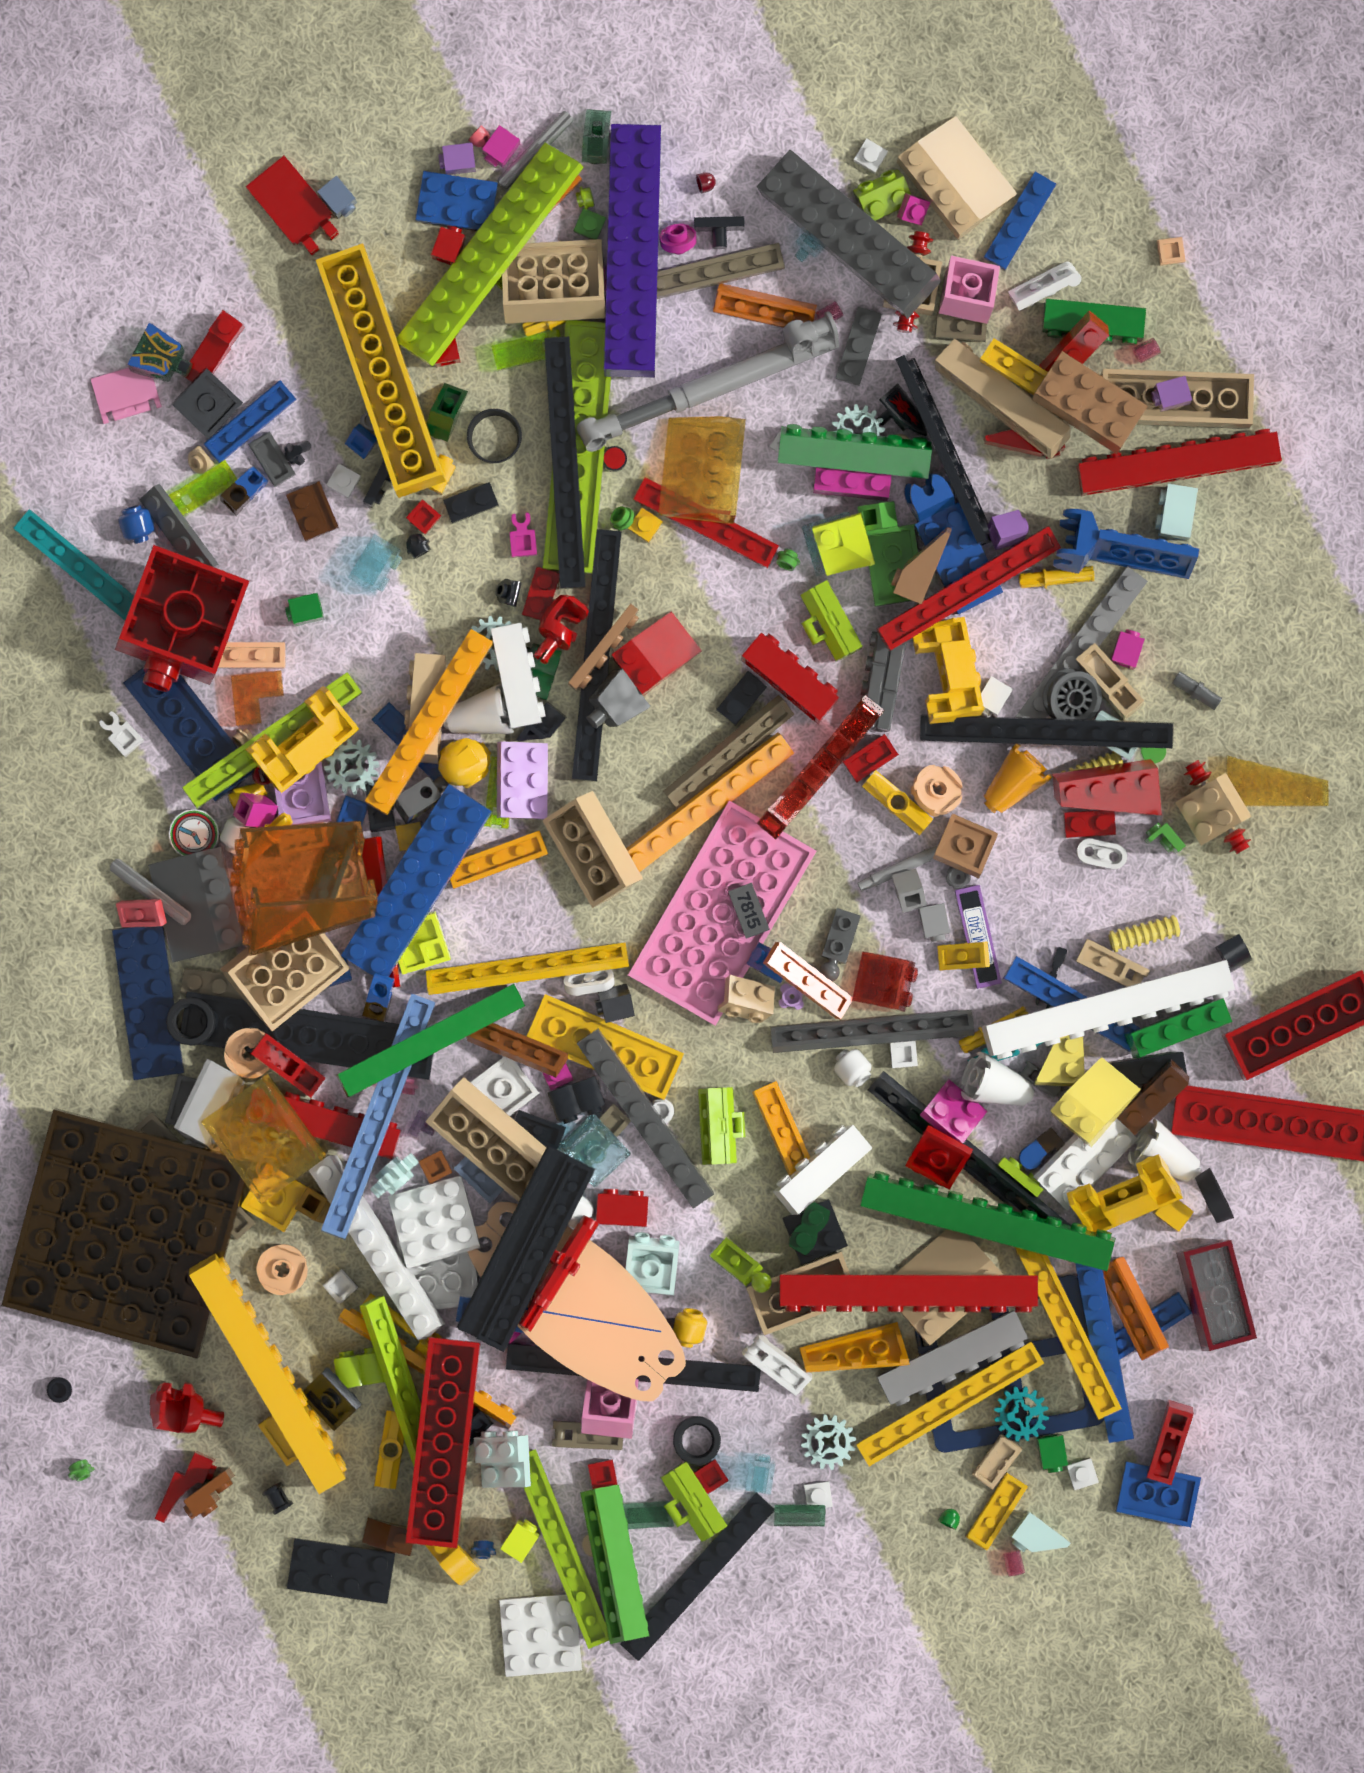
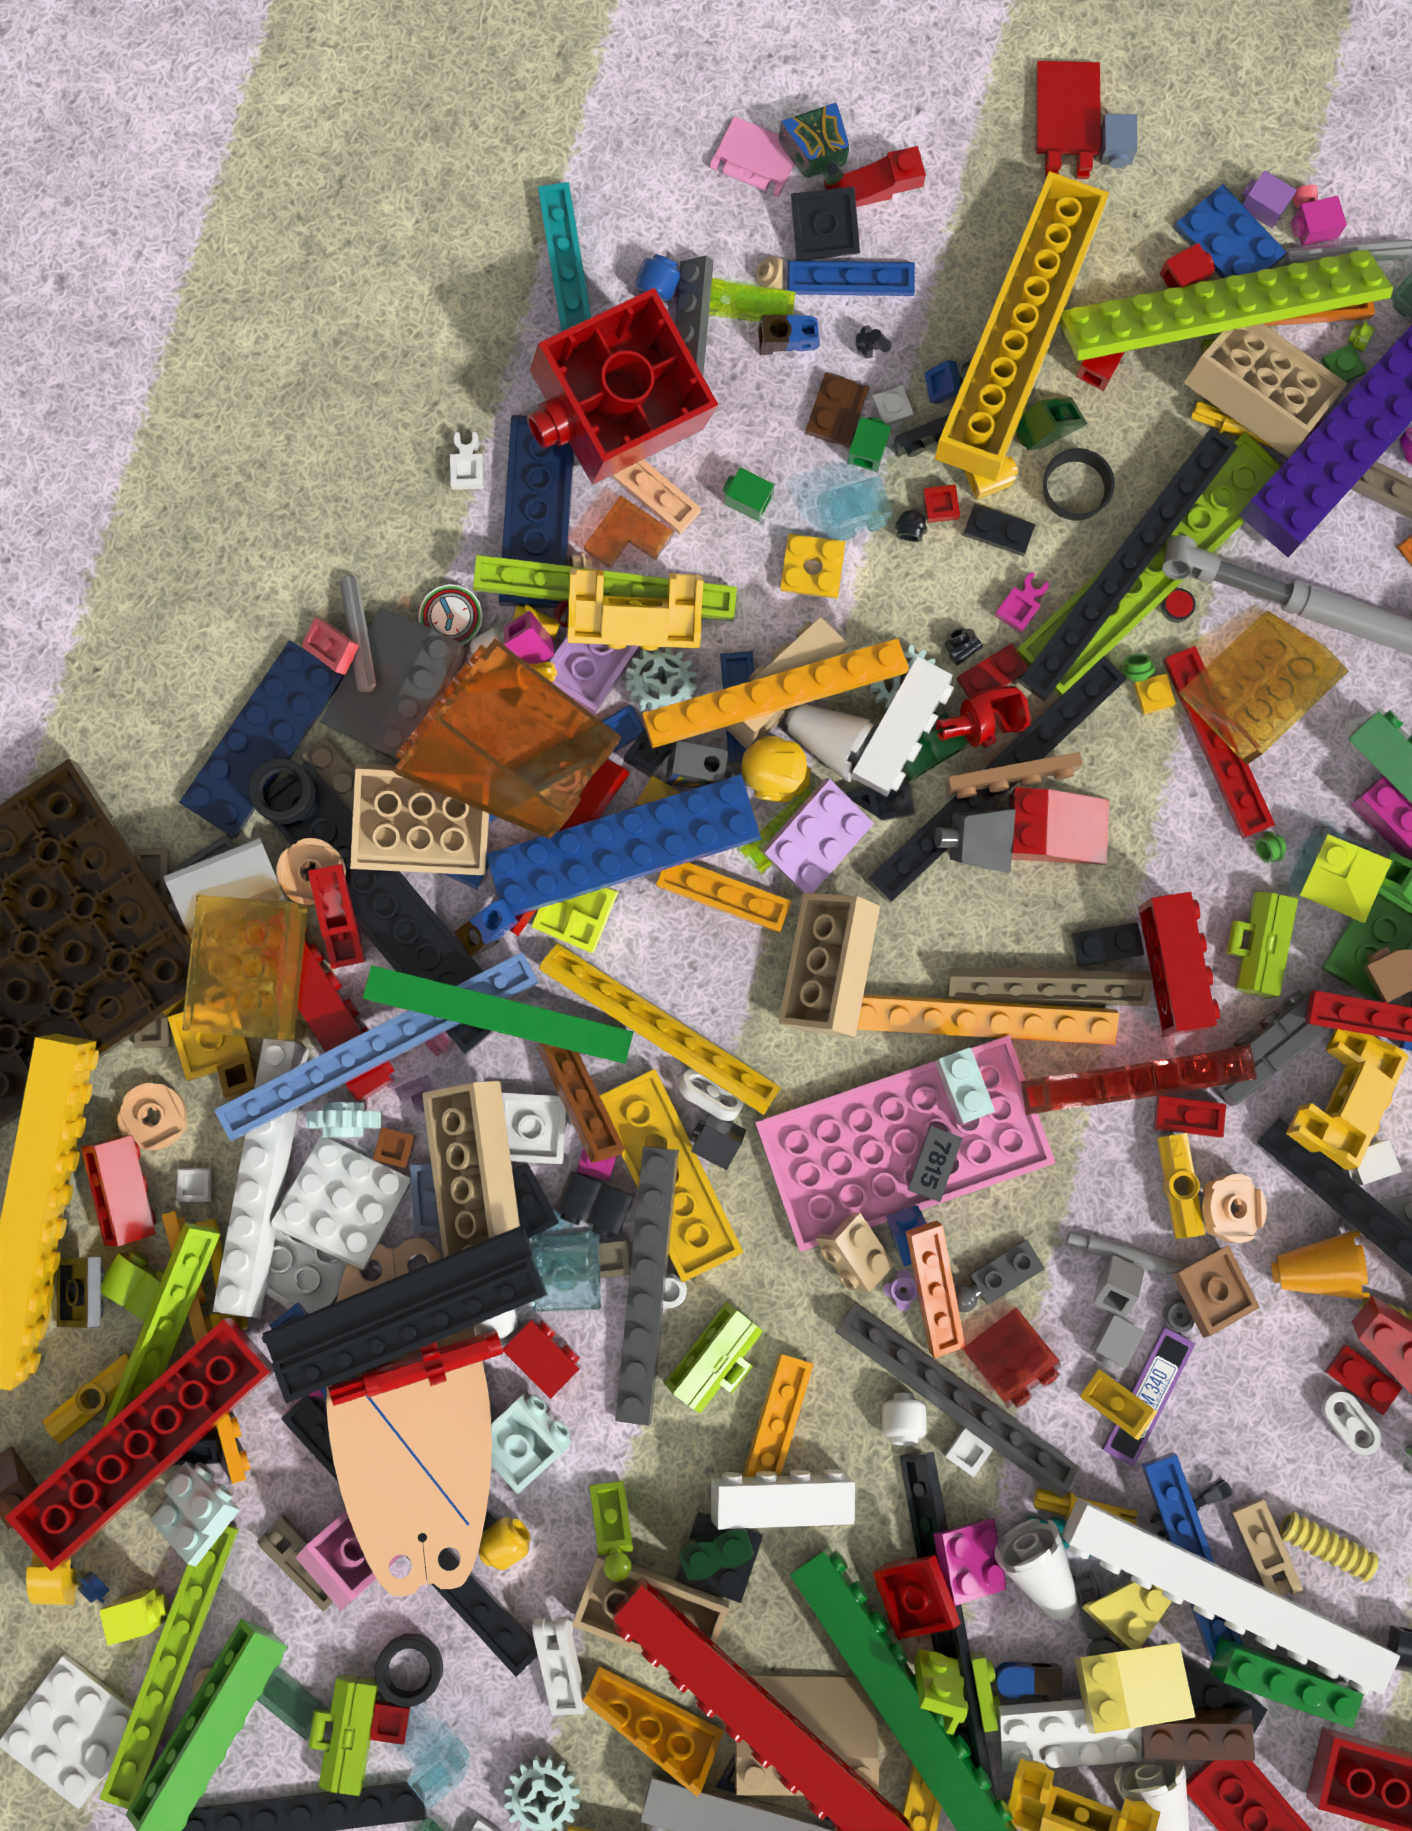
camera: 45 degrees right, 5 degrees down
(272, 459) = (841, 330): dark grey tile -> none
(302, 1324) = (119, 1190): none -> brick
(350, 517) = (869, 443): none -> green brick
(365, 616) = (806, 548): none -> yellow piece
(521, 350) = (1172, 426): clear neon green plate -> none
(602, 1474) = (282, 1618): red plate -> none
(728, 852) = (964, 1086): none -> light aqua brick
(990, 1191) = (940, 1687): none -> lime bracket

